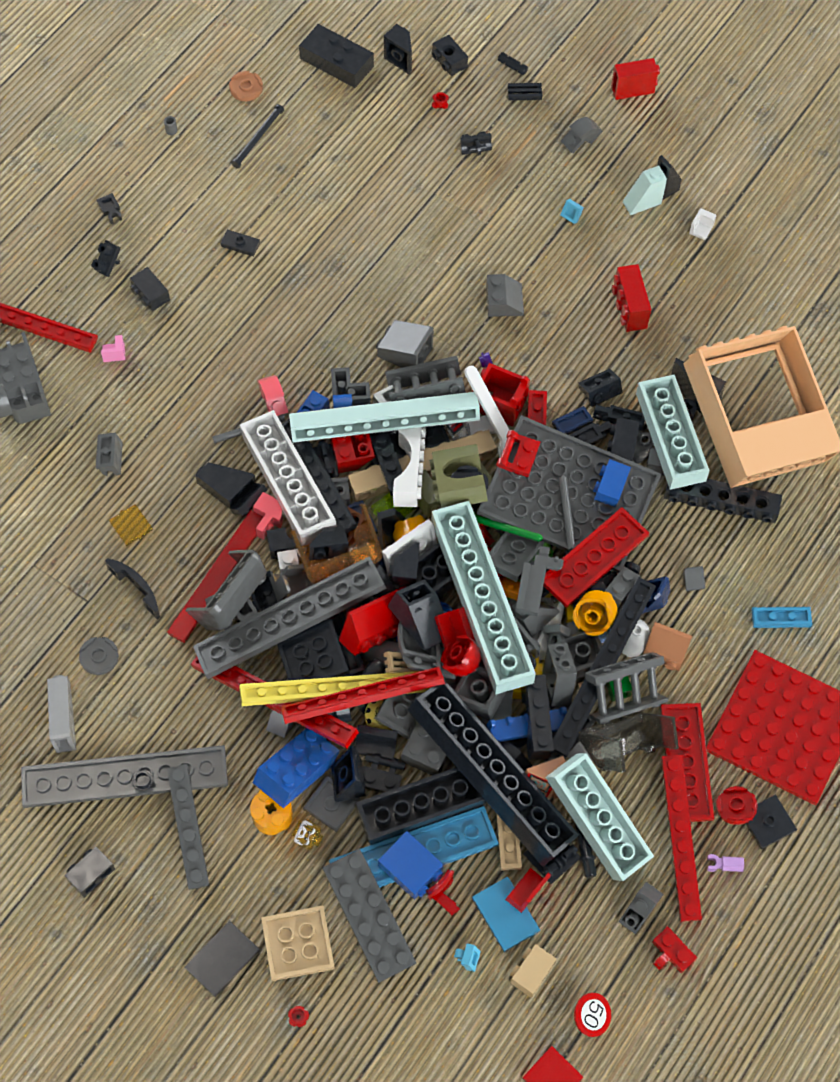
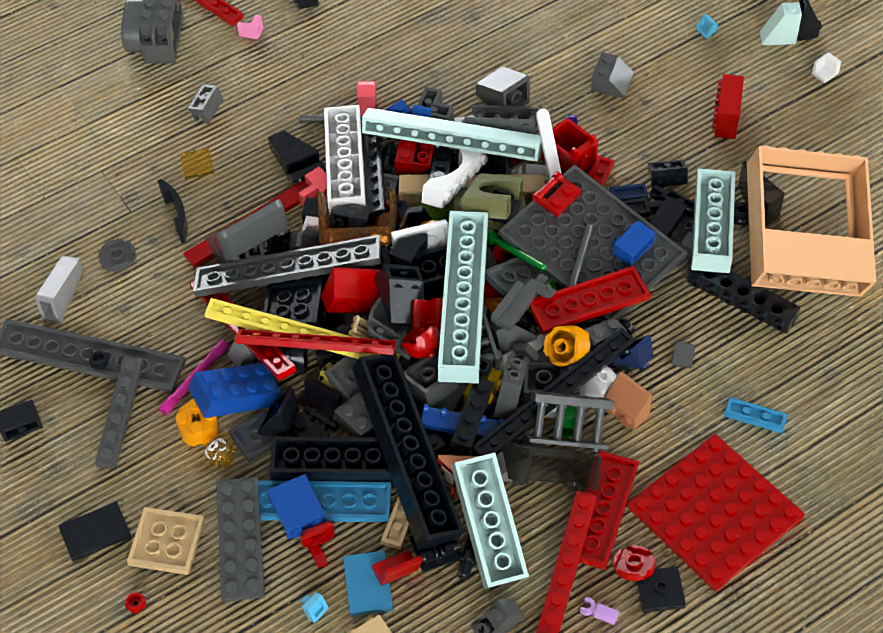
camera: 25 degrees right, 10 degrees down
(233, 792) = (173, 399): none -> dark pink piece

